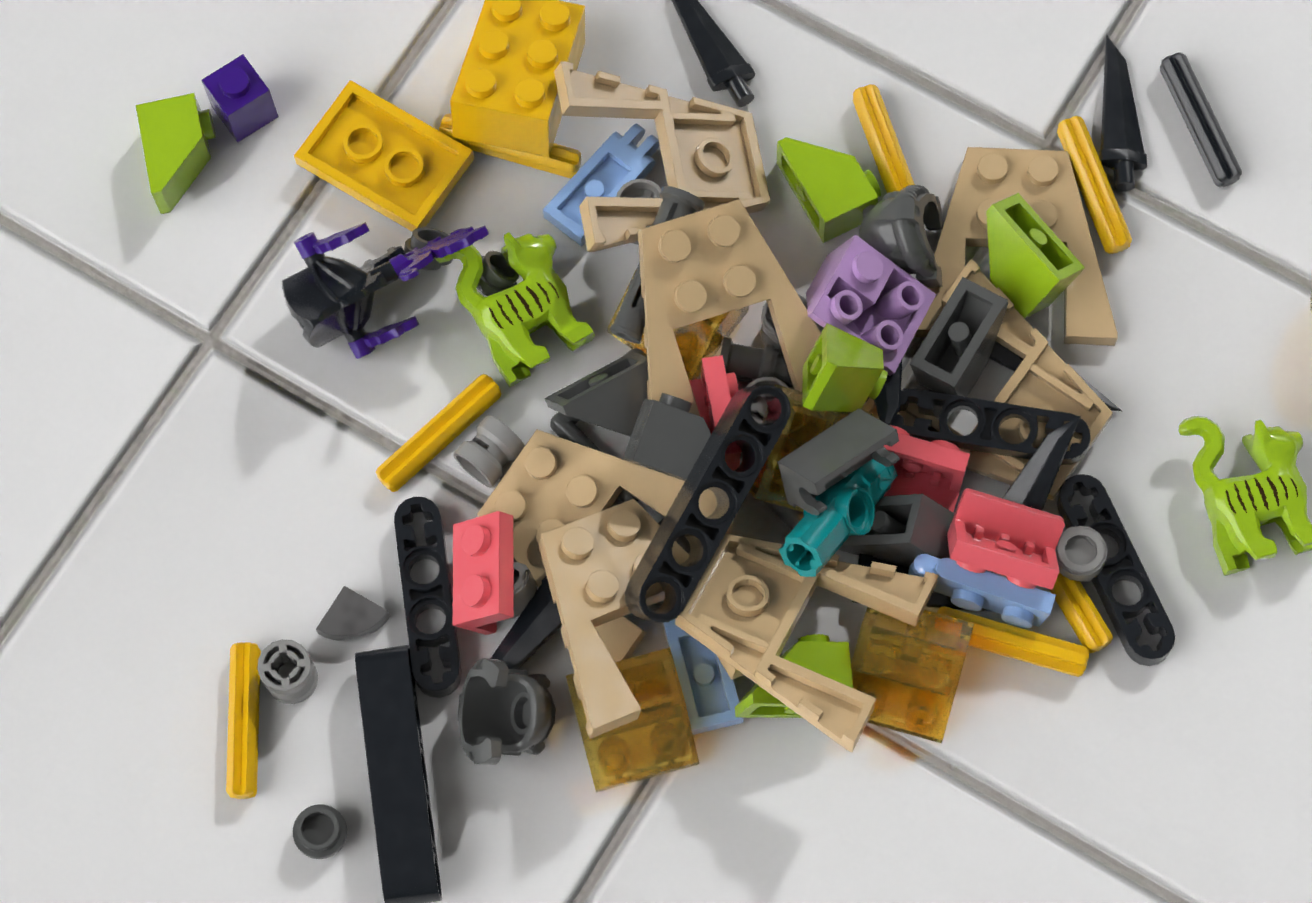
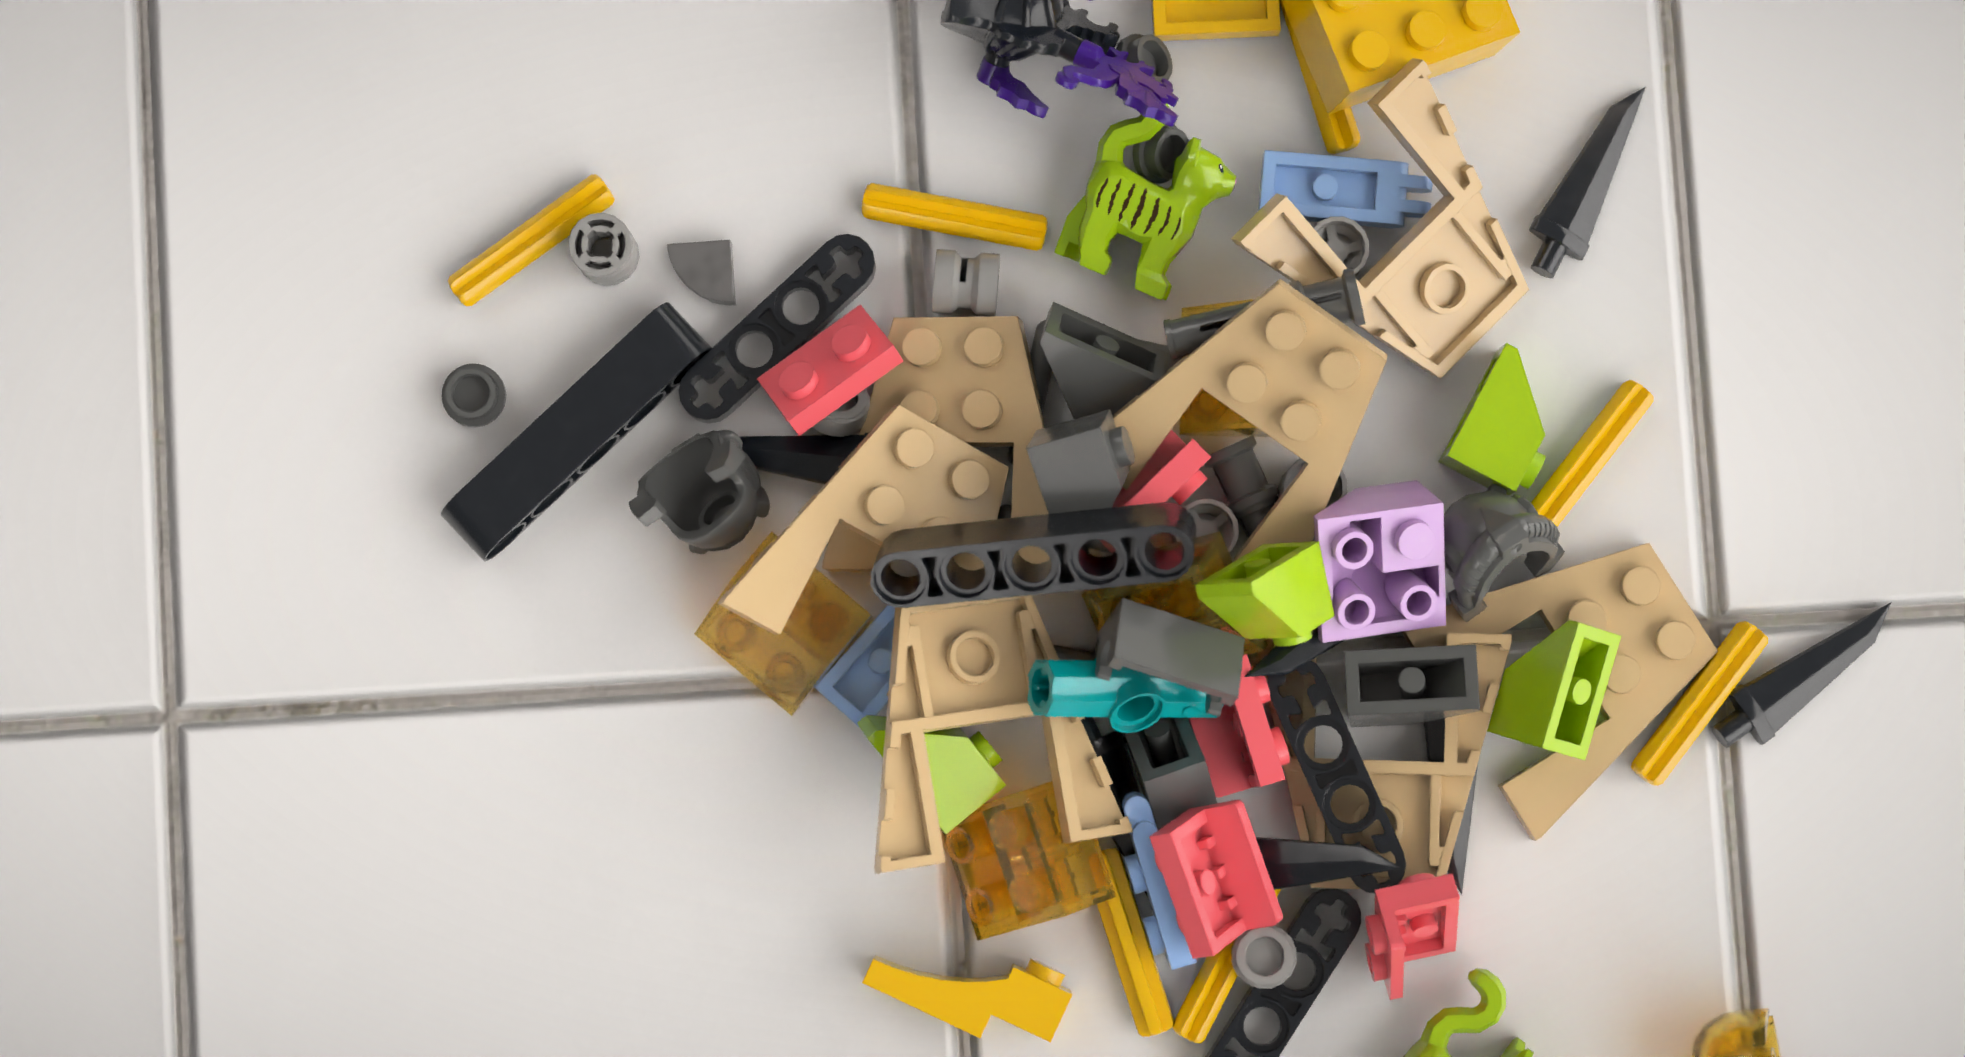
camera: 55 degrees right, 15 degrees up
(1002, 734) = (1023, 998): none -> yellow slope
(1124, 444) = (1410, 924): none -> coral bracket
(1200, 120) = (1856, 767): black axle -> none

